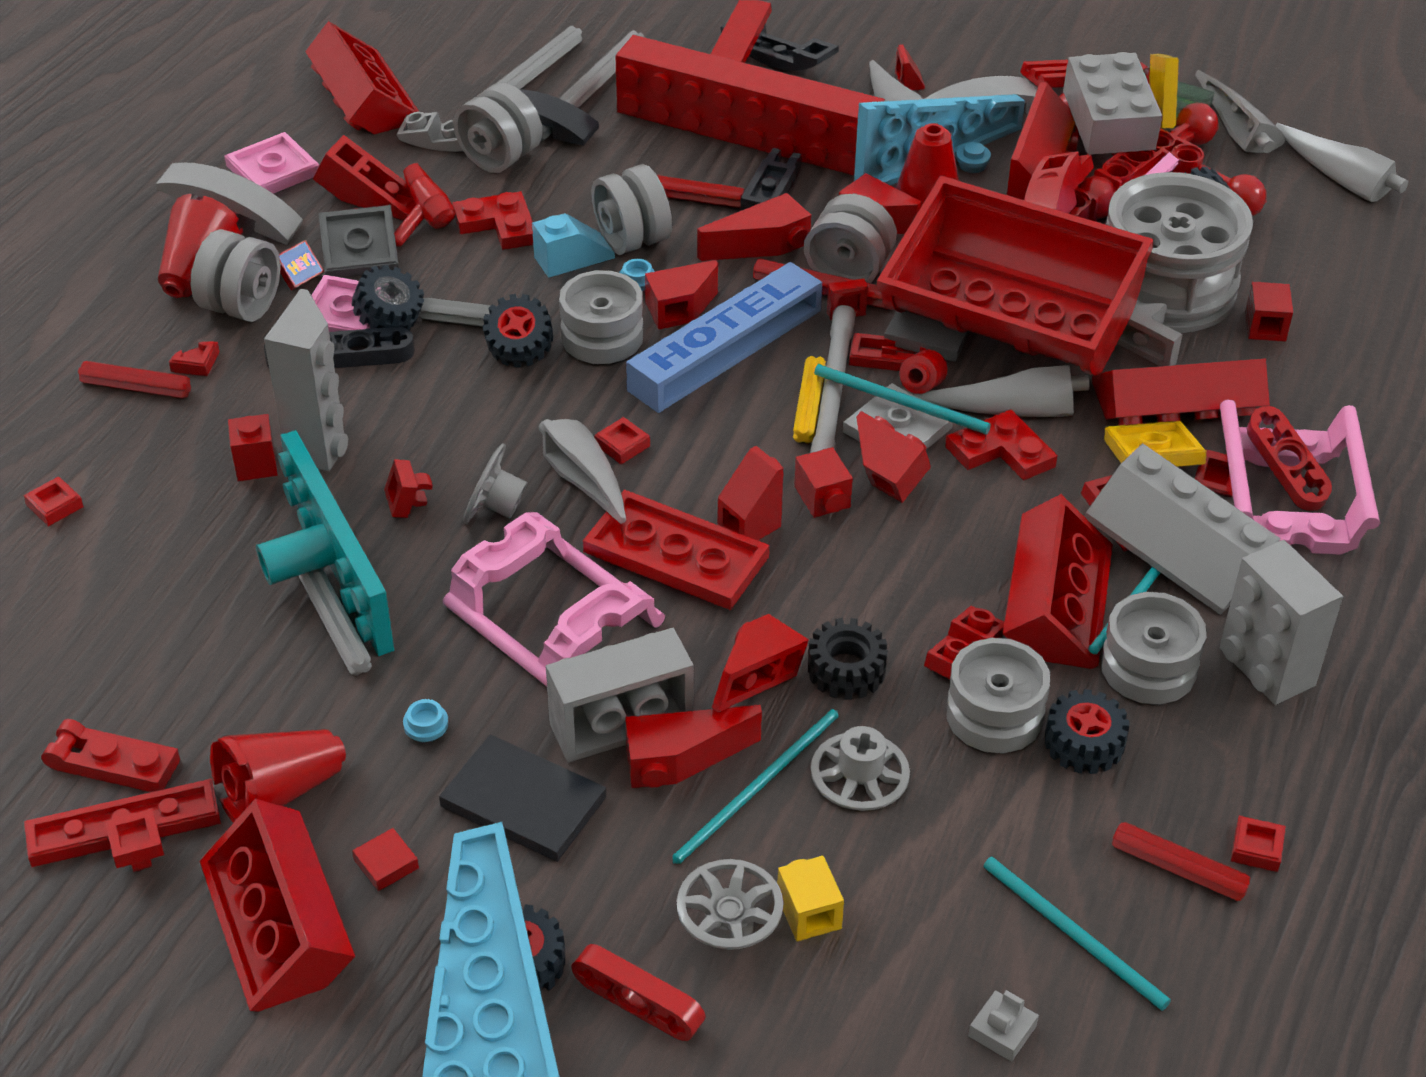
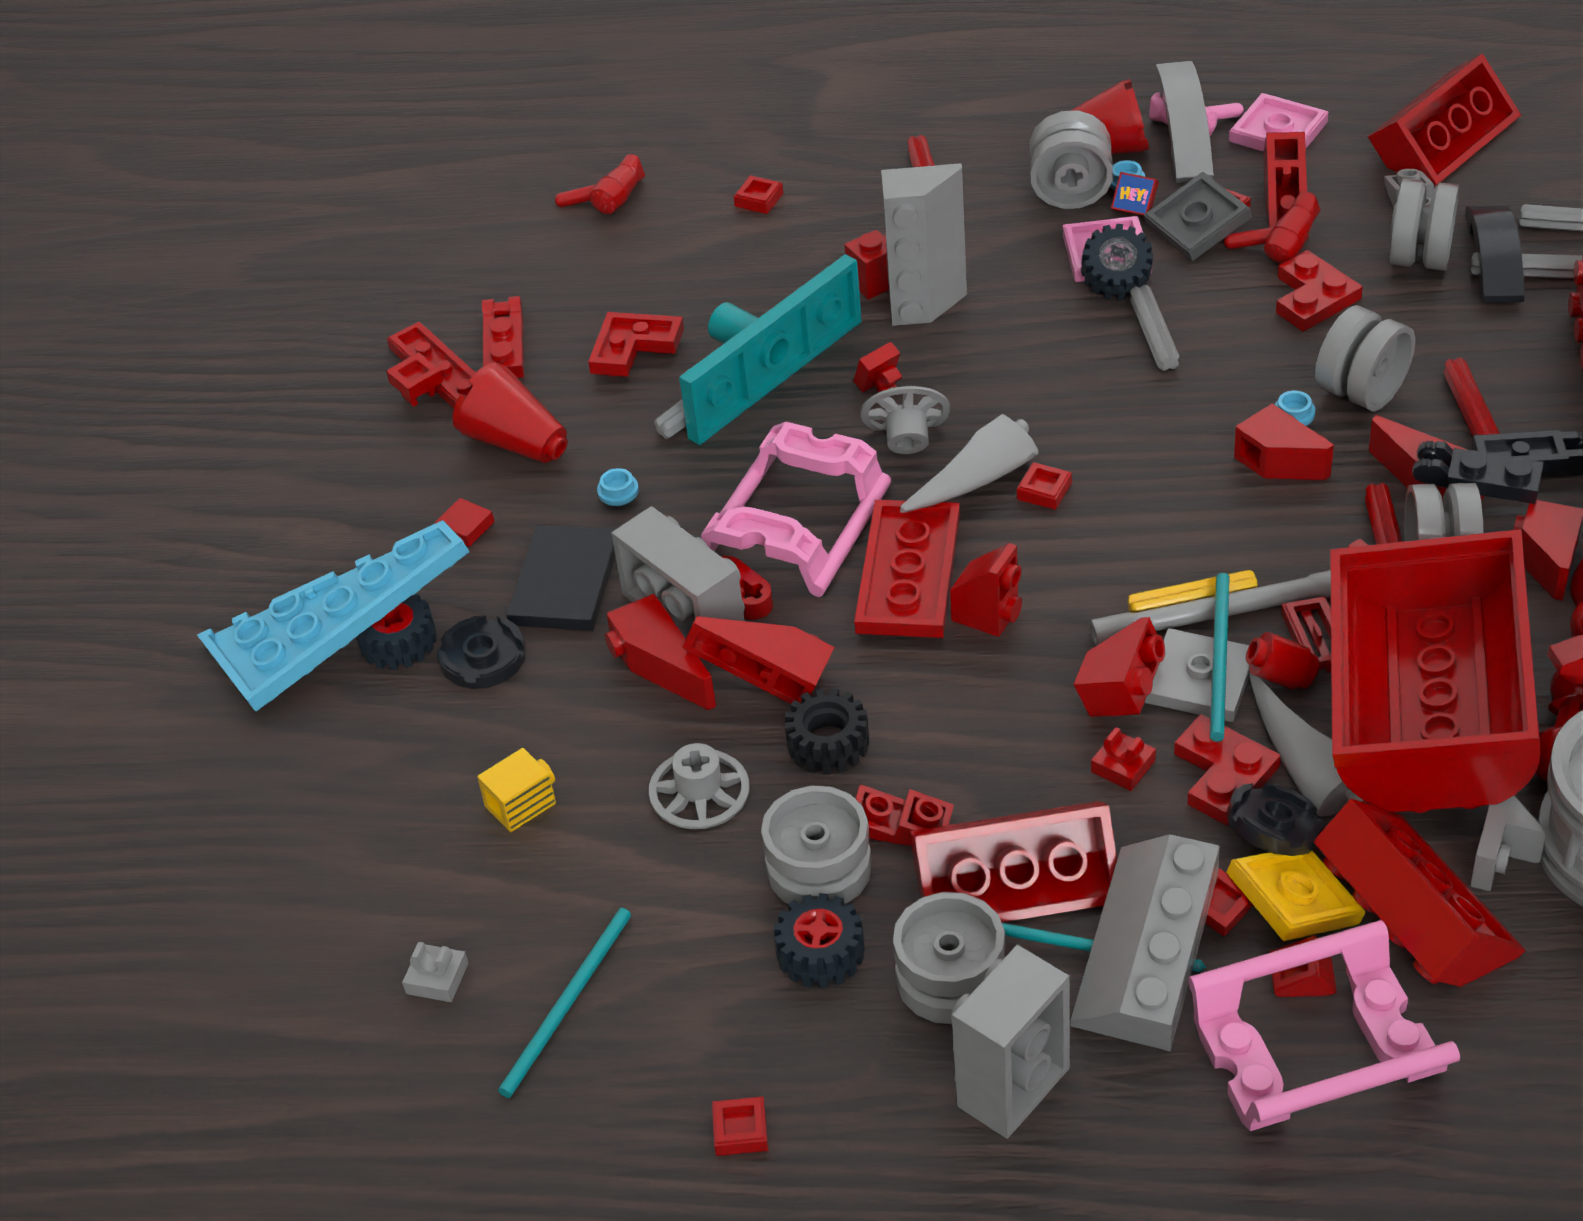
camera: 75 degrees right, 0 degrees up
(197, 360) = (980, 196): red tile -> none
(204, 653) = (626, 334): none -> red plate
(275, 907) = (388, 477): red slope -> none
(394, 342) = (1053, 263): black beam -> none
(519, 316) = (1135, 356): black wheel -> none
(567, 245) = (1291, 340): medium azure slope -> none
(587, 890) = (481, 652): none -> black tile
(601, 317) = (1190, 400): light grey wheel -> none
(638, 992) = (377, 713): red beam -> none
(723, 337) = (1237, 498): medium blue brick -> none
(729, 910) = (476, 738): light grey wheel -> none
(754, 787) = (652, 723): teal axle -> none
(803, 200) = (1494, 474): none -> black hinge
(823, 482) = (1060, 638): red brick -> none
(967, 494) = (1123, 759): none -> red tile
(1082, 431) = (1275, 819): none -> black tile
(1181, 861) = (683, 1063): red axle -> none
(1289, 476) = (1346, 998): red beam -> none

